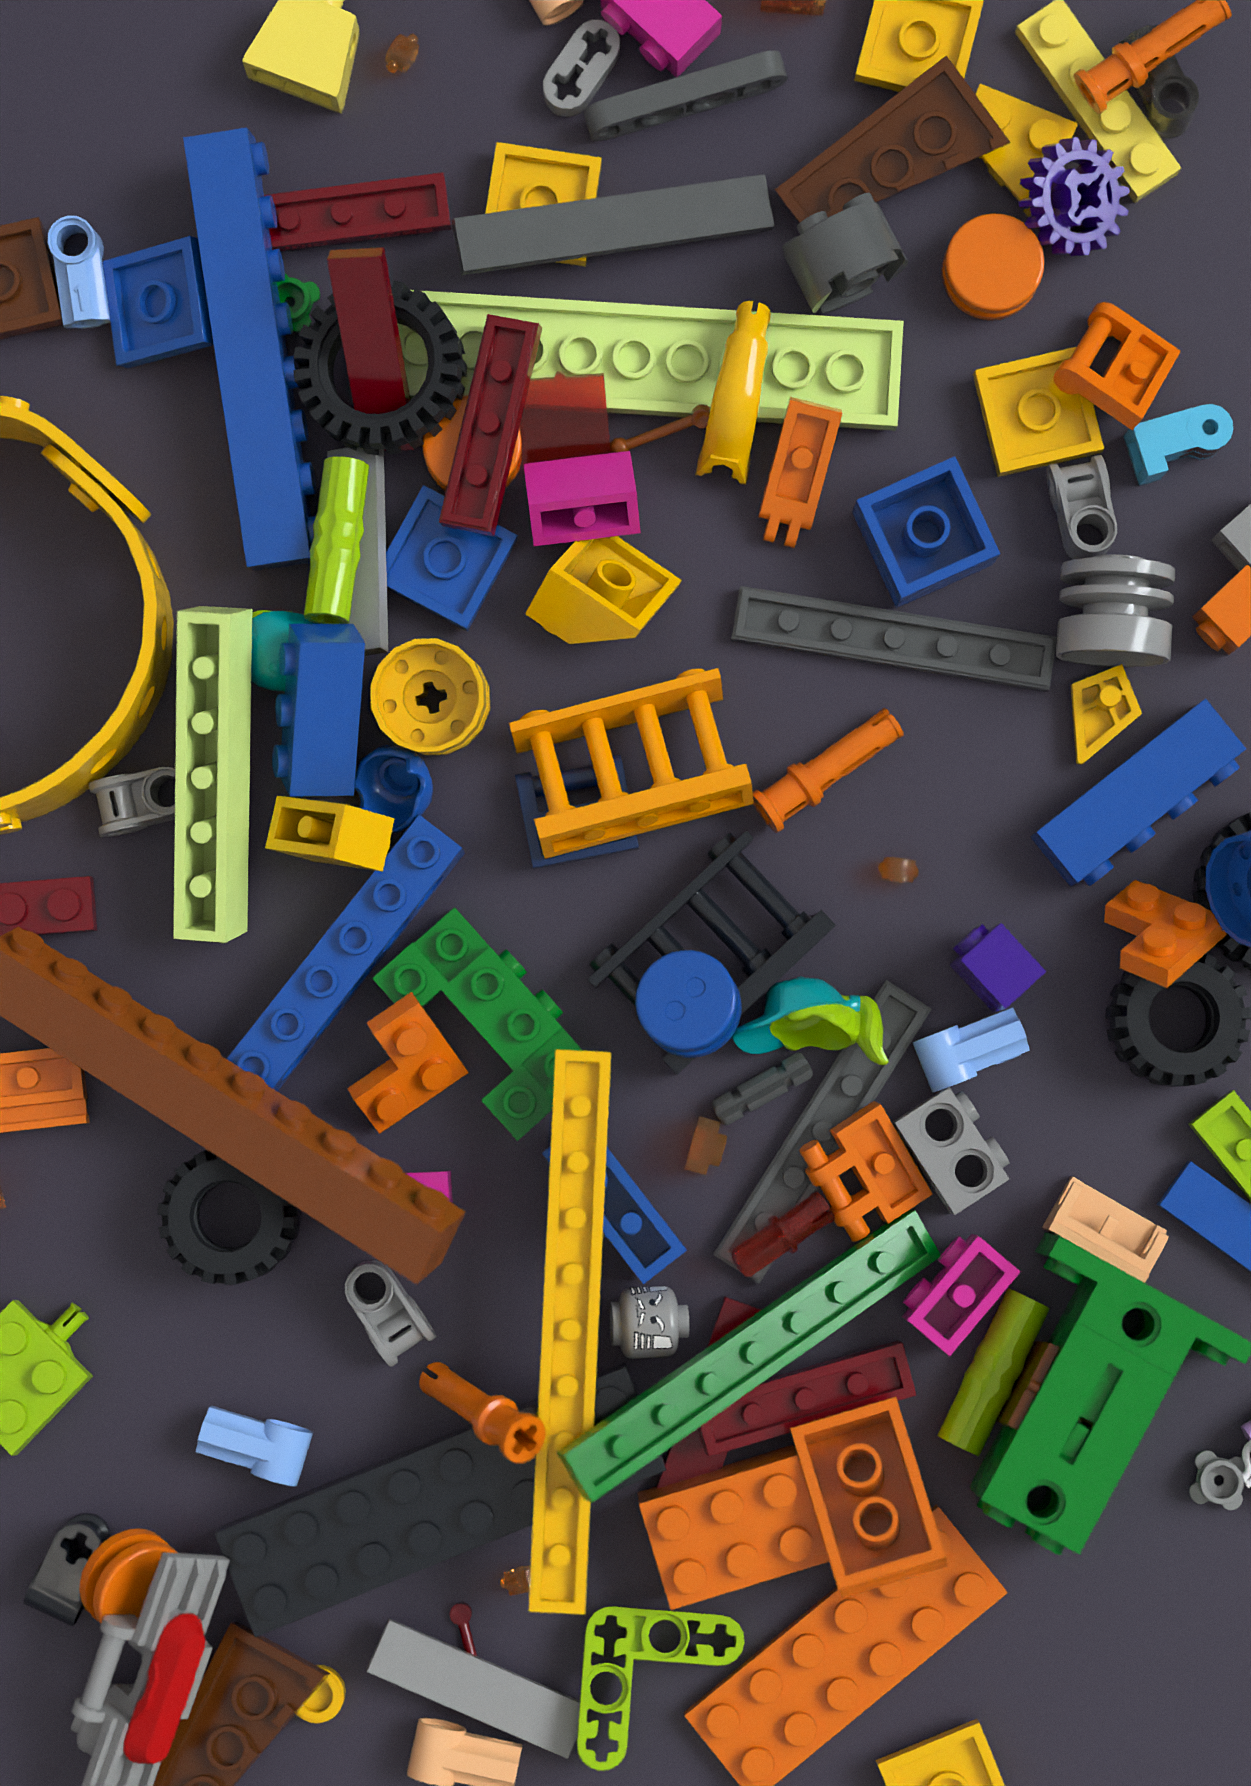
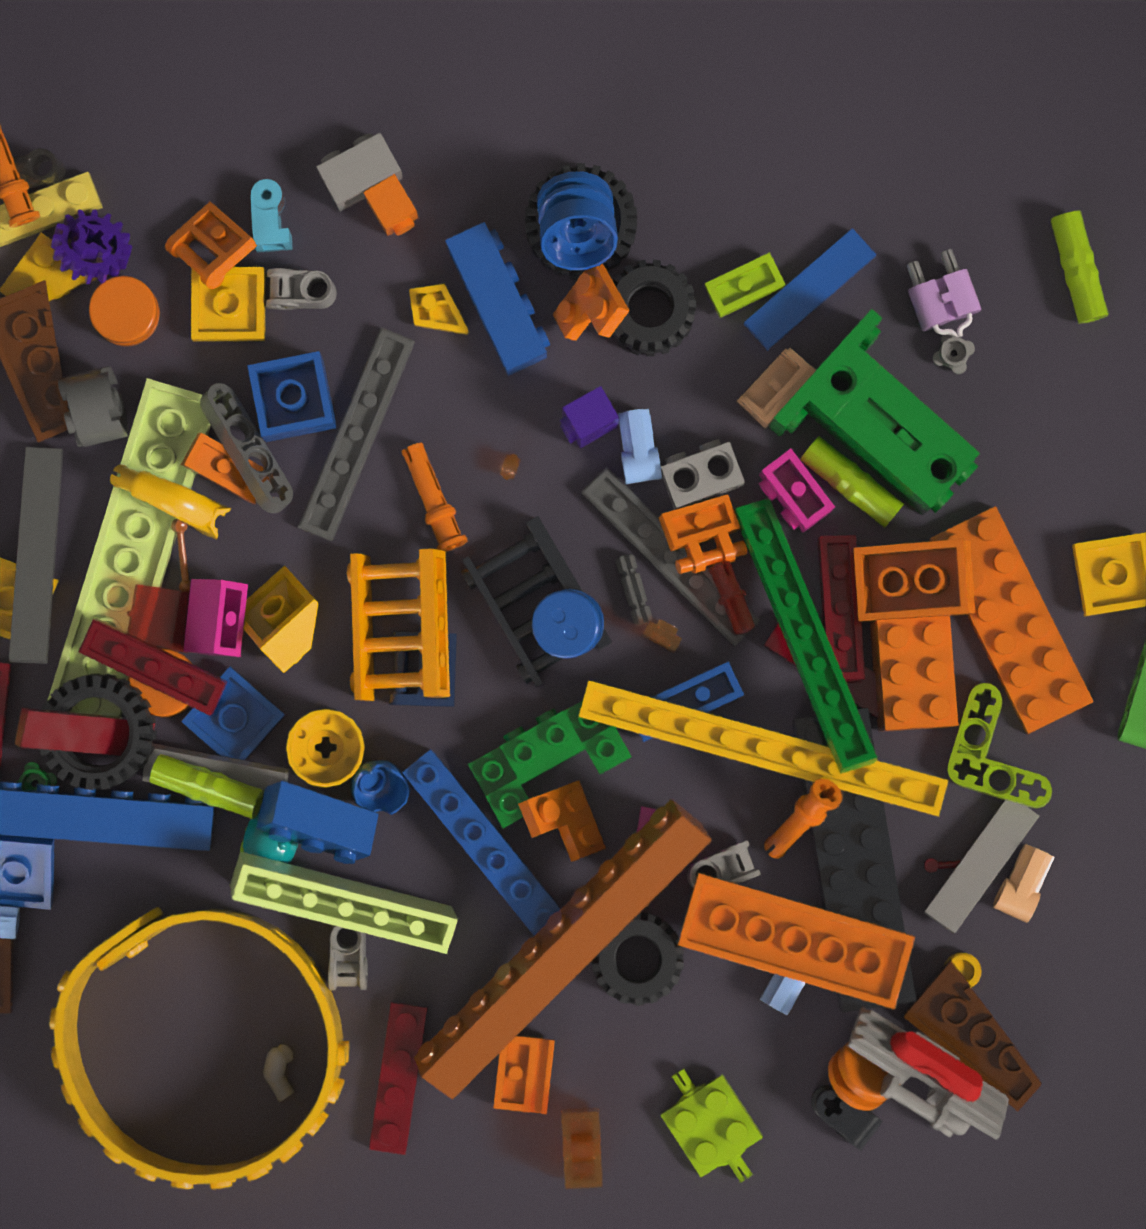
camera: 75 degrees left, 0 degrees up
(301, 1443) = (796, 940): none -> orange plate
(330, 833) = (400, 834): yellow brick -> none
(517, 1580) = (918, 821): clear orange piece -> none
(648, 1322) = (769, 698): light grey head -> none
(813, 1014) = (593, 544): hair -> none
(831, 477) = (242, 449): none -> dark grey beam
(1027, 1384) = (864, 461): reddish brown piece -> none
(1115, 605) = (374, 285): light grey wheel -> none

